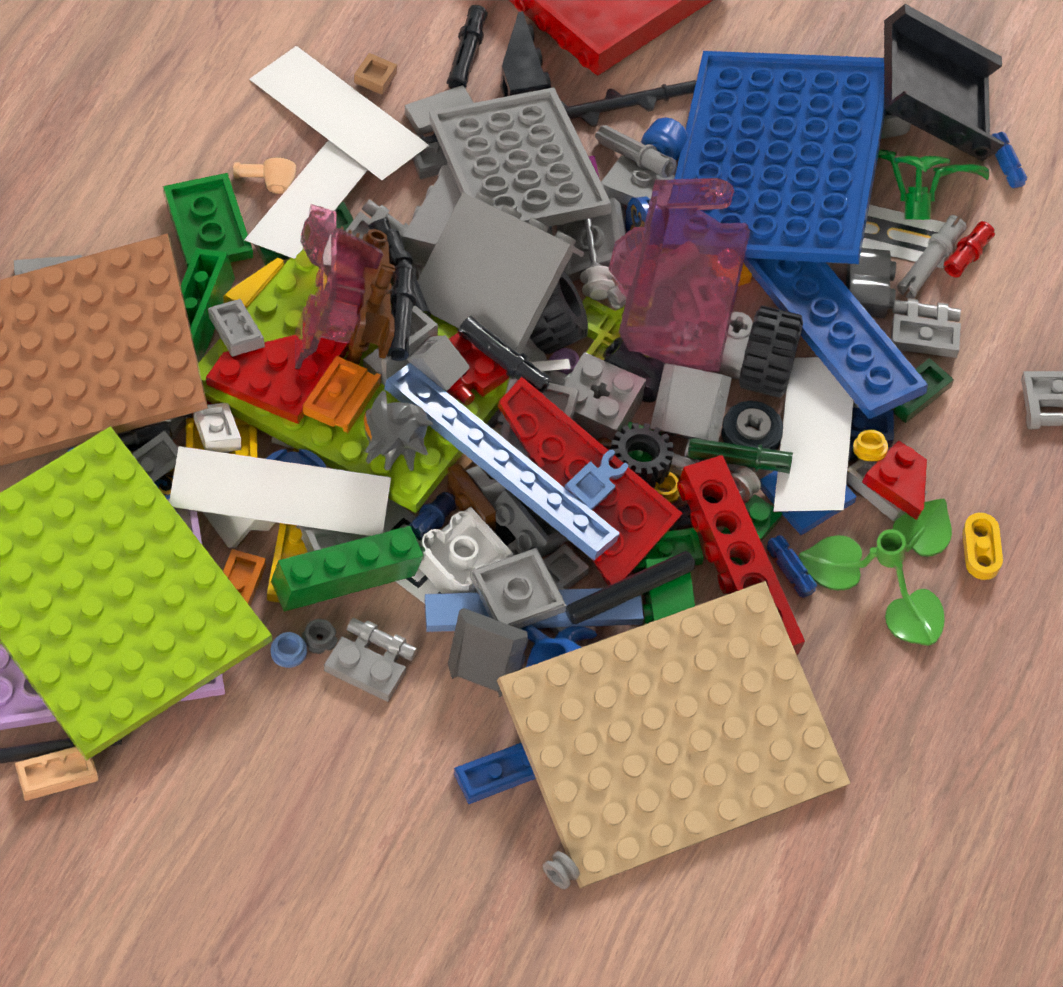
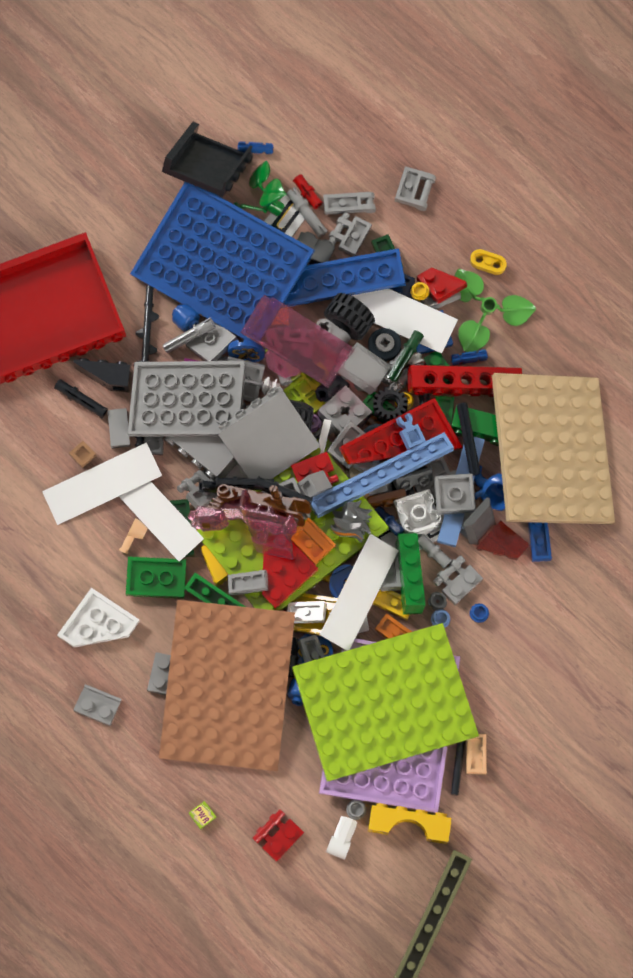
camera: 70 degrees left, 15 degrees up
(105, 165) = (97, 621): none -> white plate
(322, 708) = (479, 613): none -> blue plate
(409, 603) = (434, 551): none -> light grey pin
(469, 714) = (503, 542): none -> clear red wing
(515, 364) = (324, 448): black pin -> none
(561, 870) = (604, 528): light grey bush -> none
(980, 312) = (349, 203): none -> light grey plate

